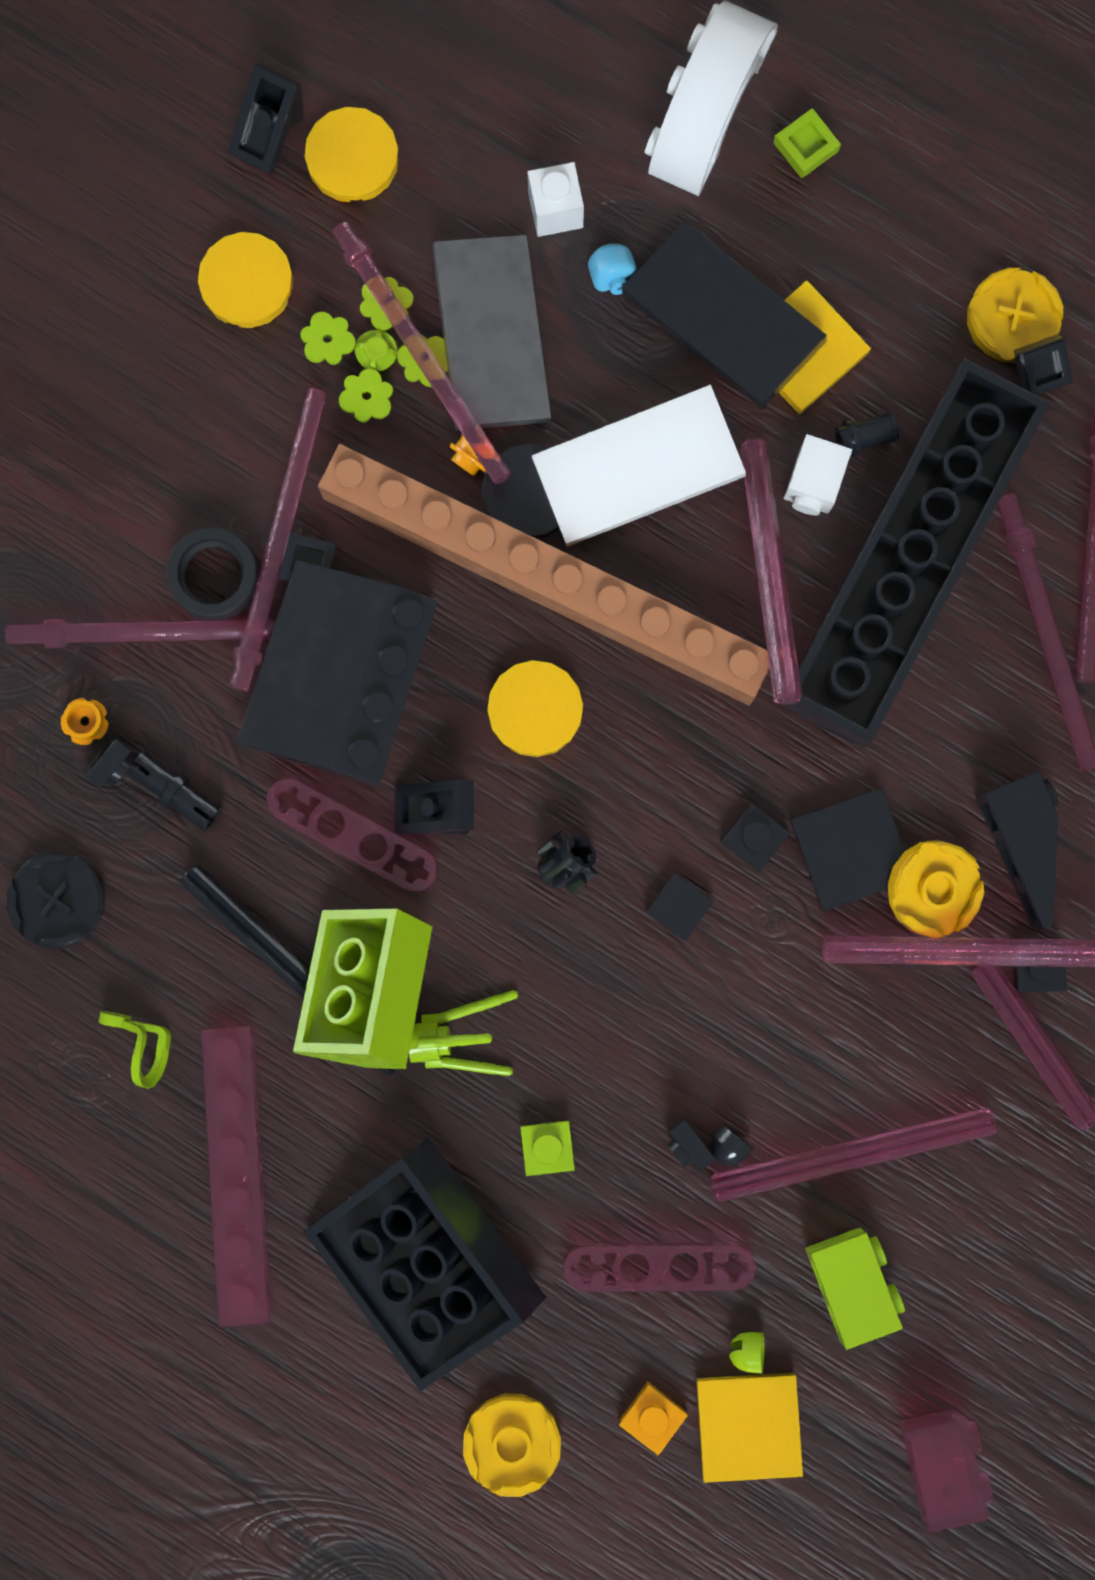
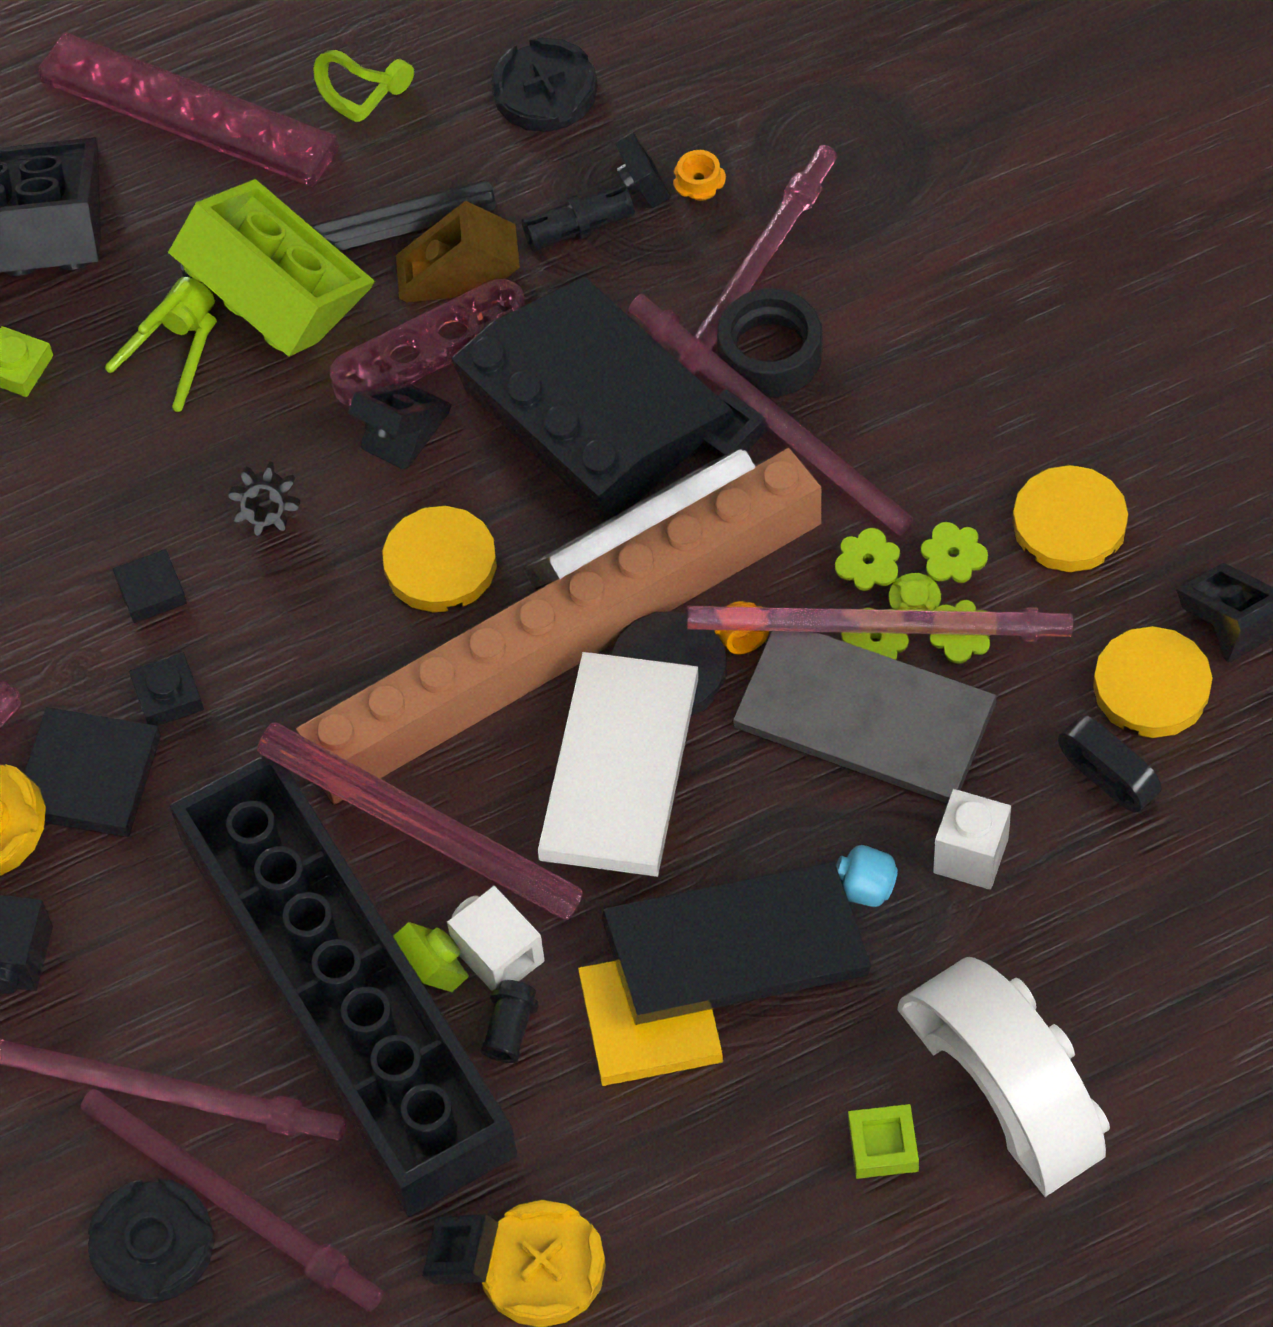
camera: 125 degrees right, 25 degrees down
(268, 856) = (457, 255): none -> pearl gold slope
(436, 563) = (638, 518): none -> tile
(439, 144) = (1109, 763): none -> black beam
(855, 510) = (432, 956): none -> lime plate

